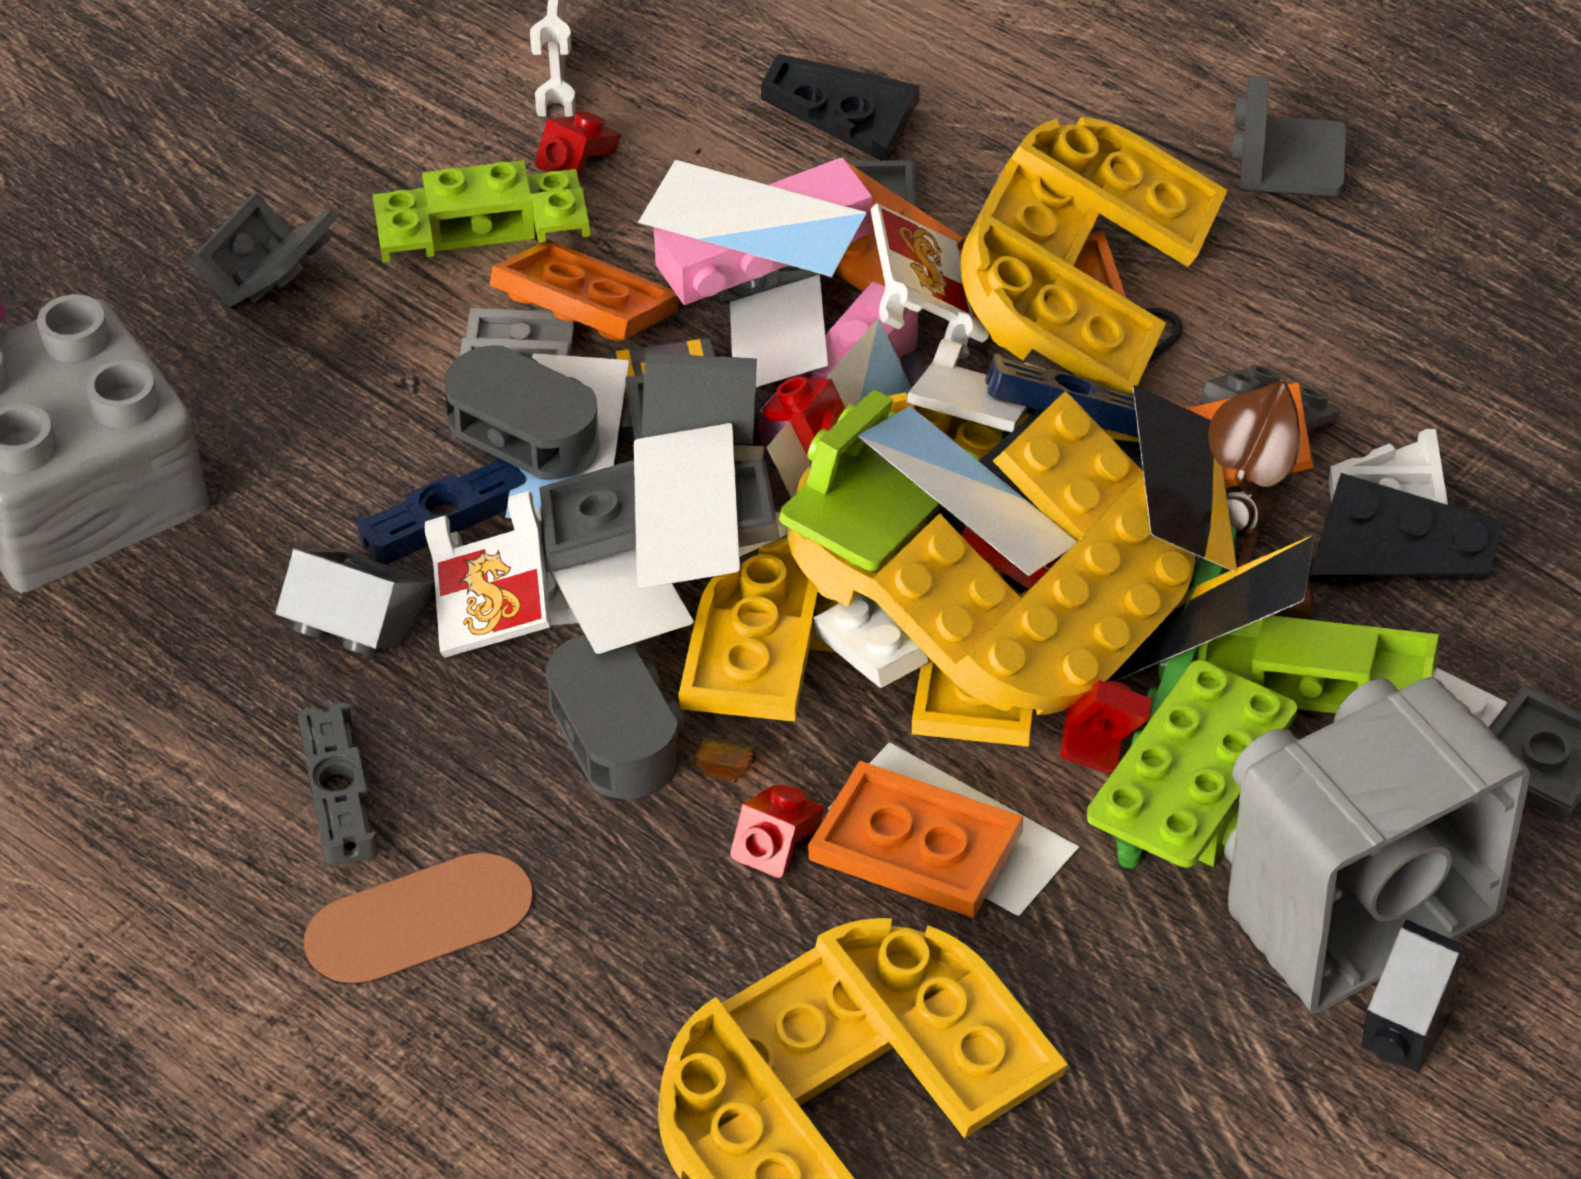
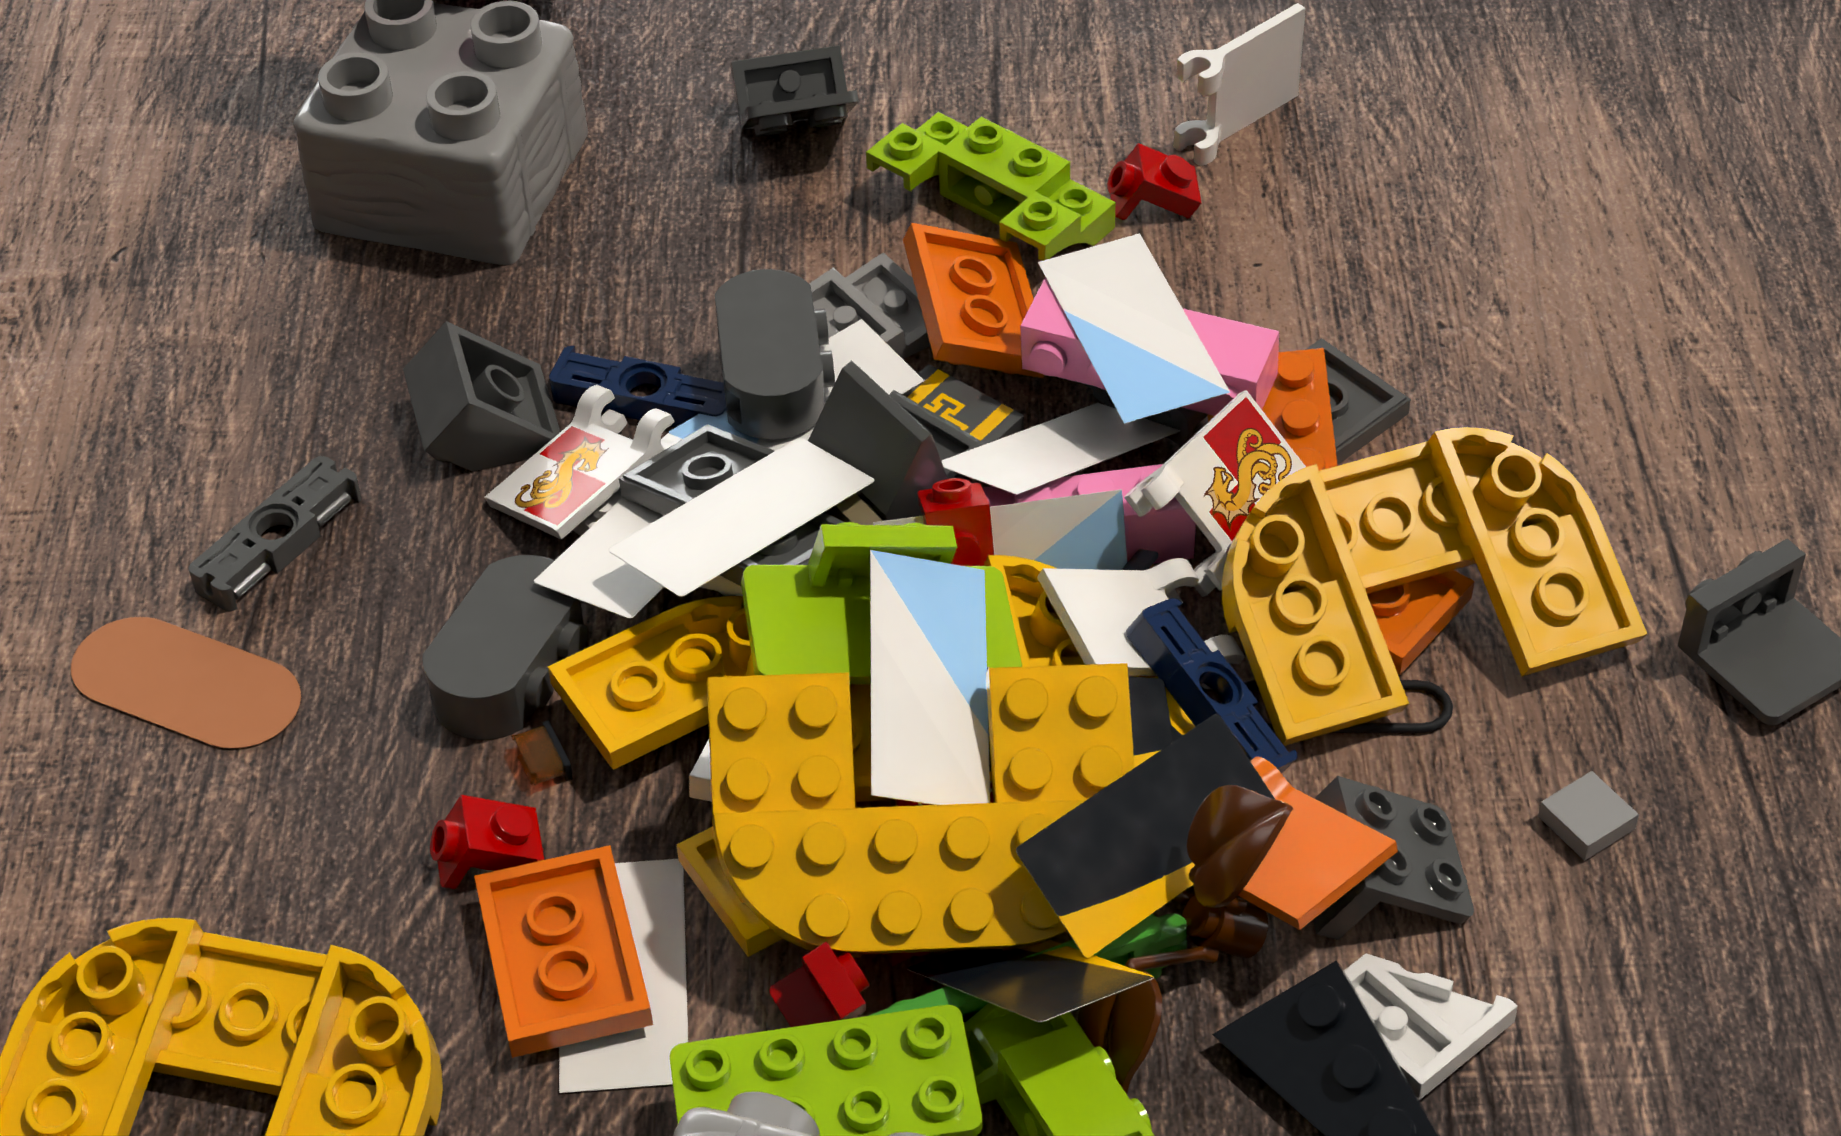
camera: 50 degrees right, 0 degrees up
(842, 102) = (1421, 308): black wing -> none
(1322, 312) = (1588, 815): none -> light grey tile

